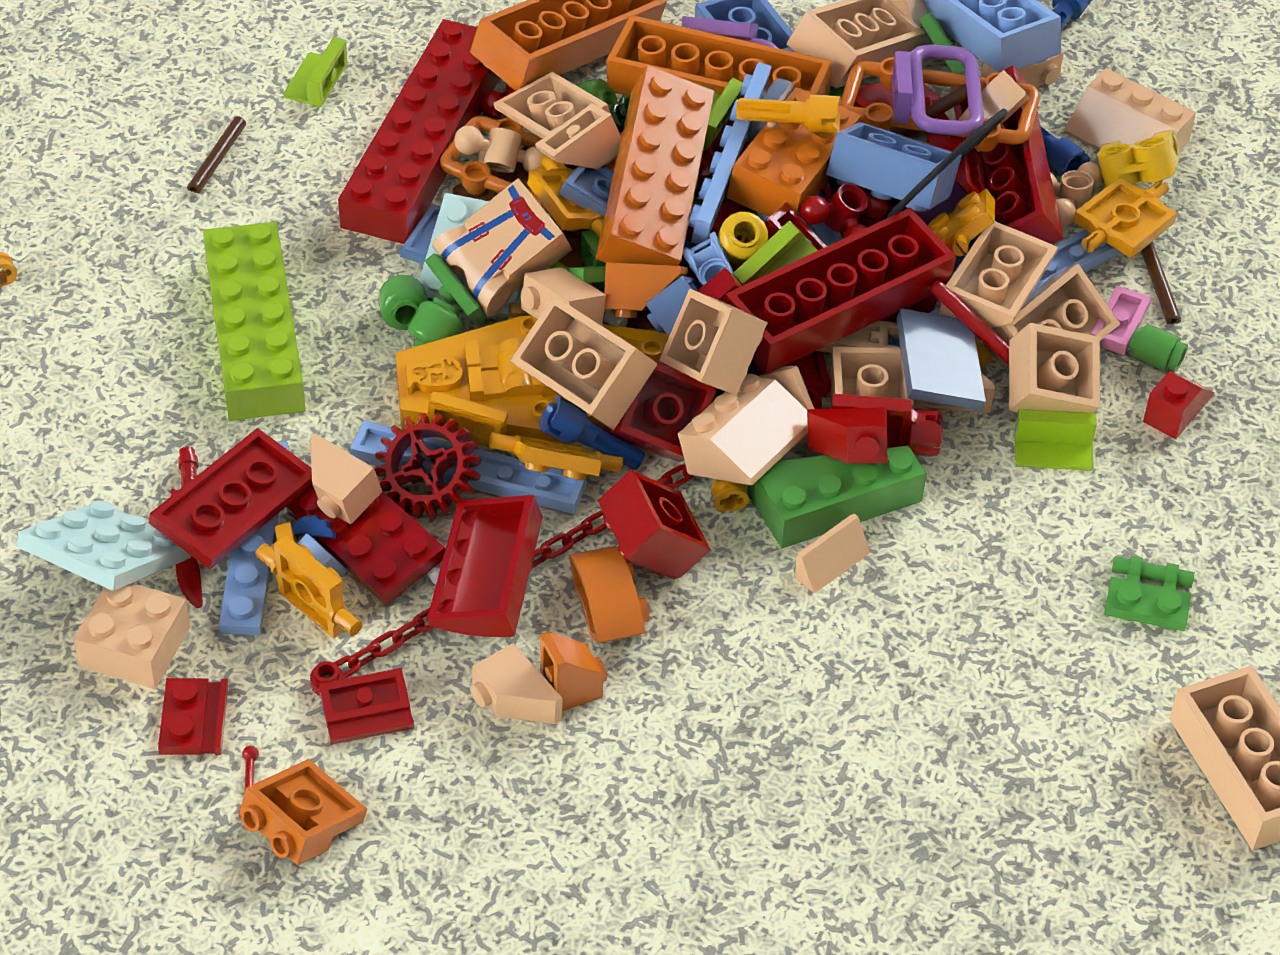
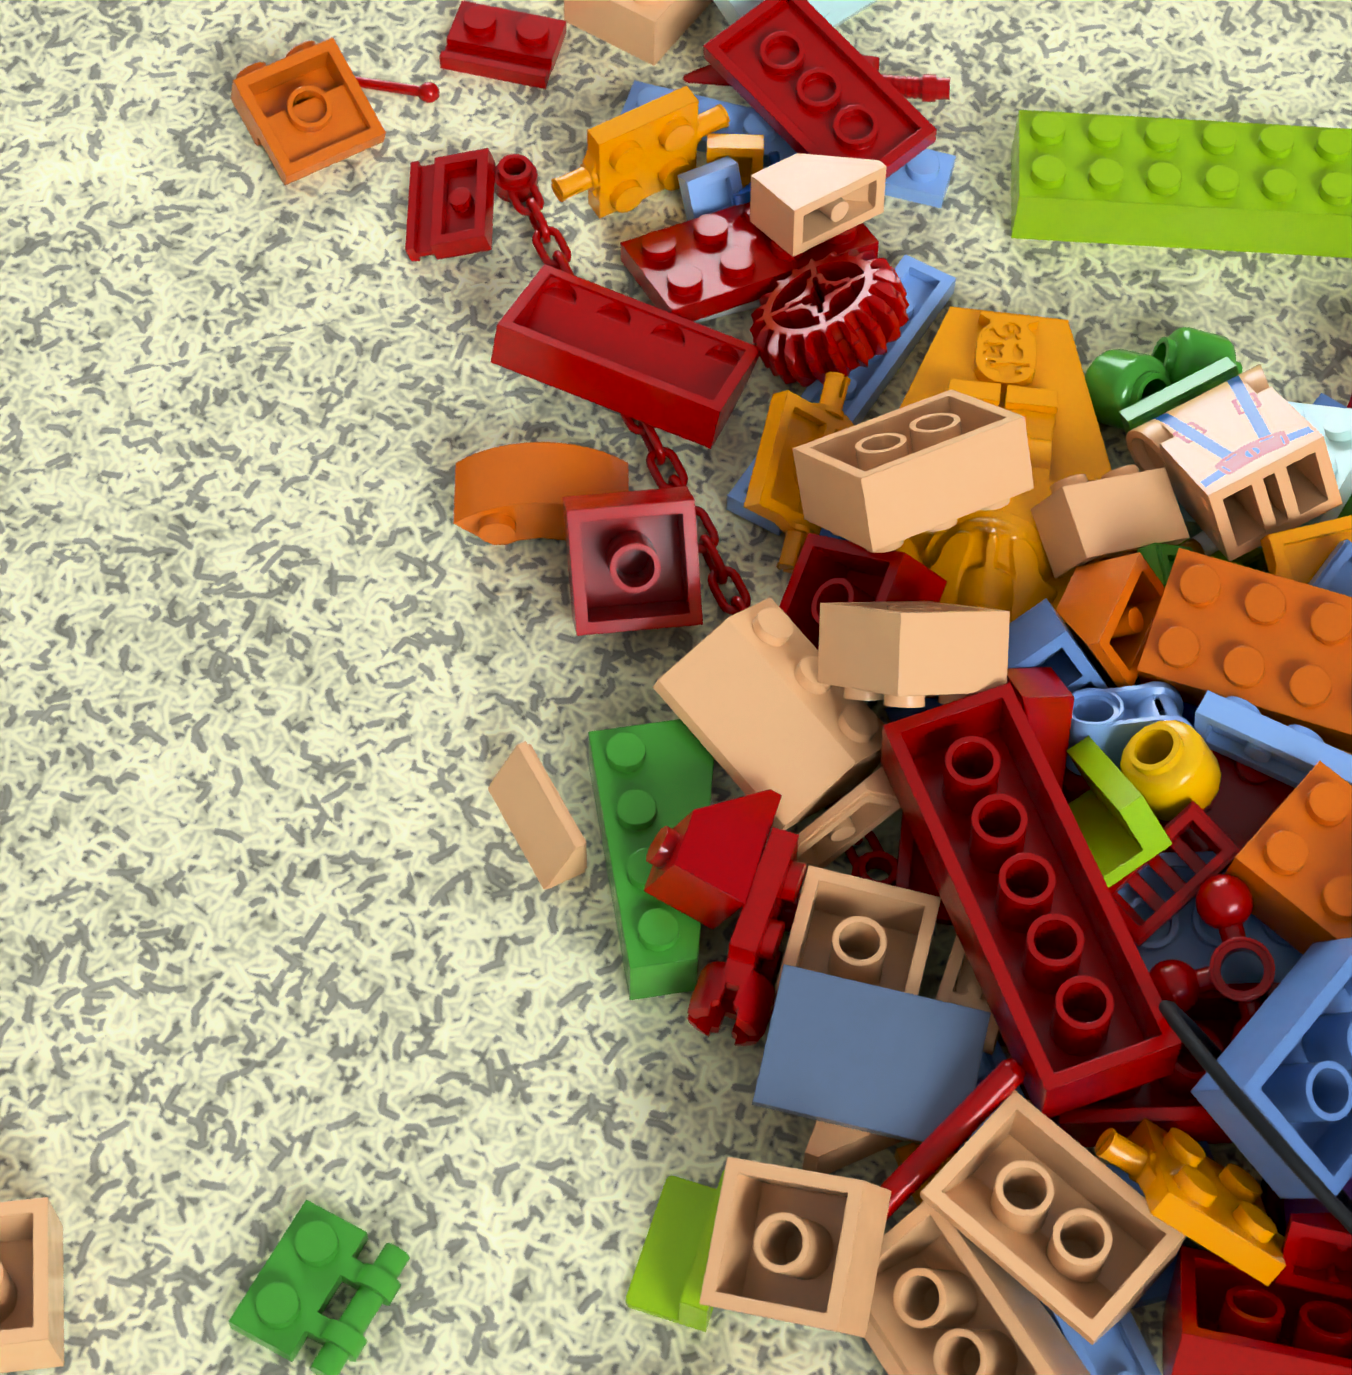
camera: 105 degrees right, 10 degrees up
(476, 418) = (898, 364): light orange plate -> none
(515, 688) = (417, 362): light nougat slope -> none
(571, 669) = (410, 408): orange slope -> none

